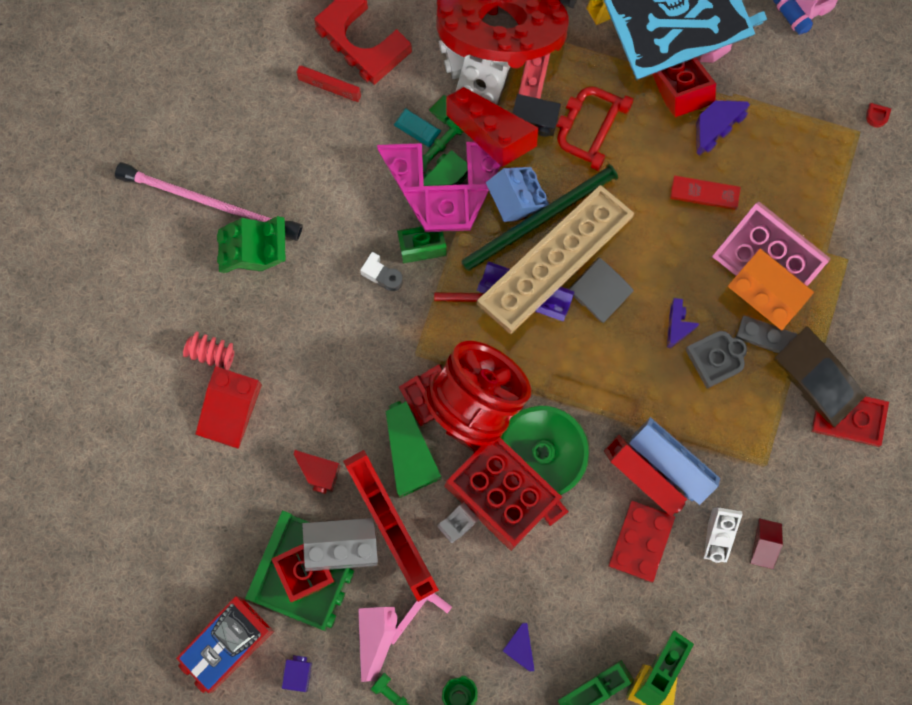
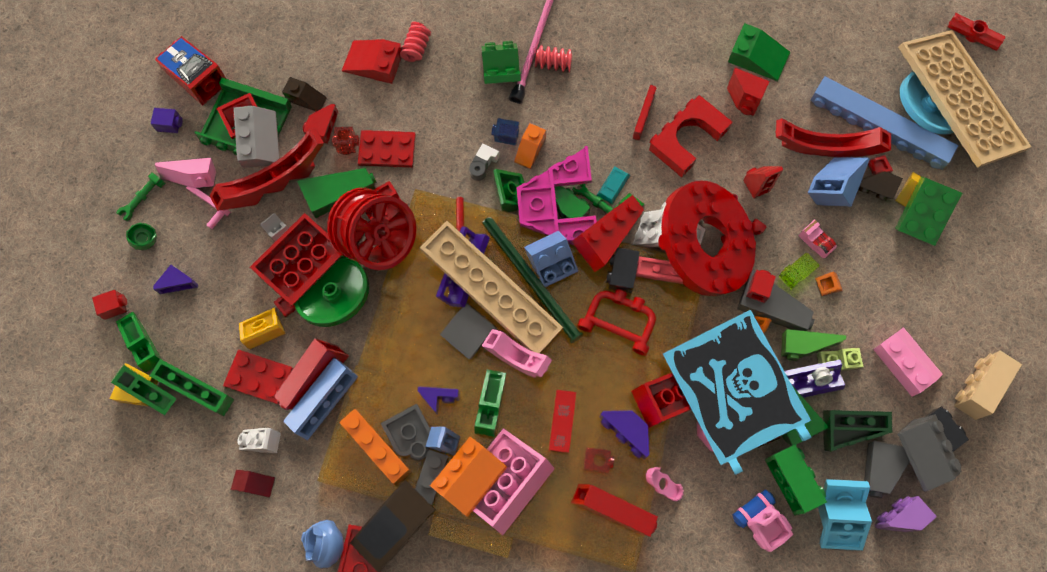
camera: 90 degrees right, 5 degrees down
(246, 181) = (553, 58): none -> coral piece
(274, 493) = (303, 94): none -> dark brown slope
(343, 244) = (505, 131): none -> clear blue brick
(344, 429) = (345, 140): none -> clear red brick
(354, 390) = (386, 148): none -> red plate
(364, 216) = (530, 145): none -> orange slope
(582, 538) = (260, 329): none -> yellow slope
(634, 232) = (516, 355): none -> bright pink arch
(658, 616) = (191, 387): none -> green brick
(685, 267) = (490, 403): none -> green slope
(728, 321) = (443, 440): none -> medium blue slope
(736, 392) = (375, 447): none -> orange brick
(746, 165) = (589, 464): none -> clear red brick
(775, 90) = (671, 490): none -> bright pink piece
(802, 144) = (614, 509): none -> red slope
(836, 457) = (323, 544): none -> medium blue helmet

